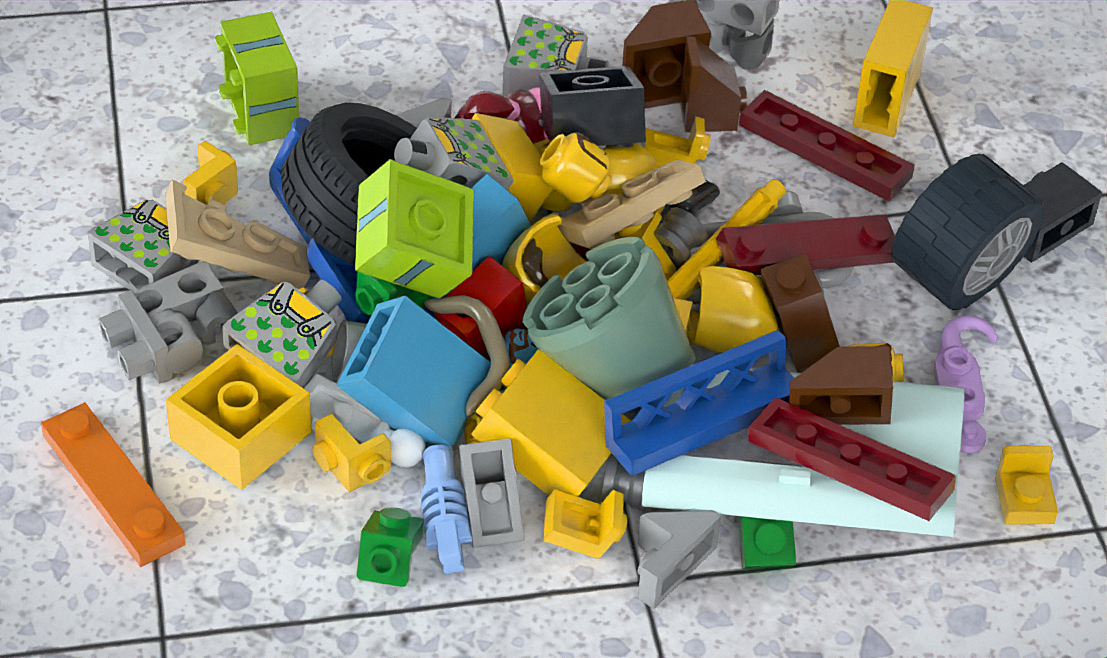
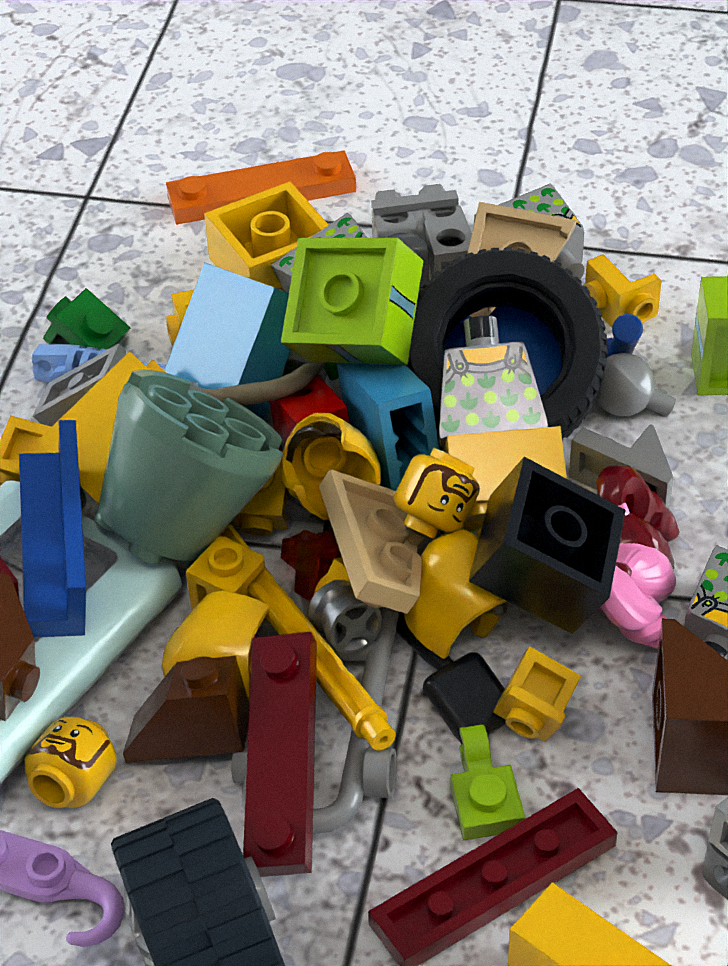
camera: 115 degrees right, 0 degrees up
(709, 89) = (621, 747): reddish brown slope -> none
(755, 168) = (483, 794): none -> lime plate

